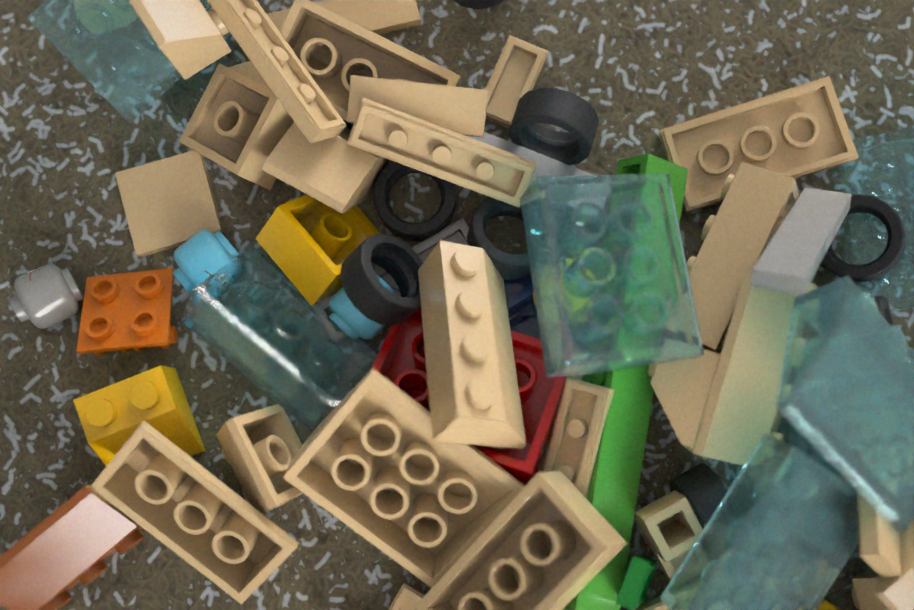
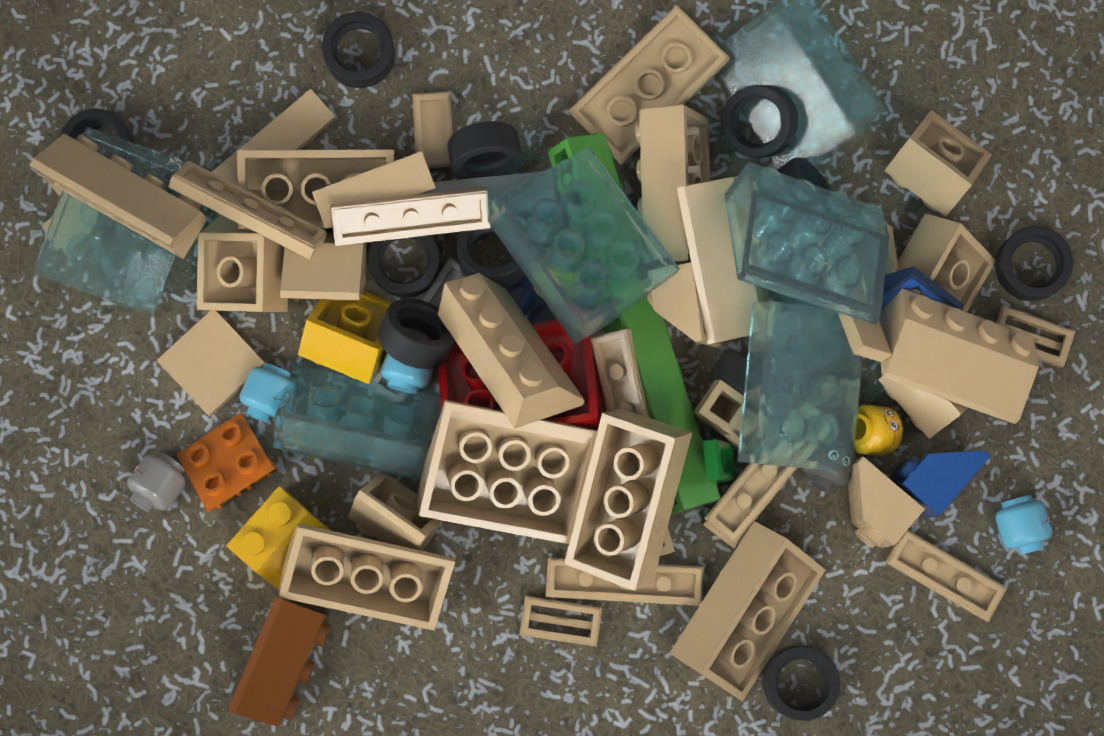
camera: 30 degrees left, 0 degrees up
(801, 241) = (709, 148): light grey tile -> none

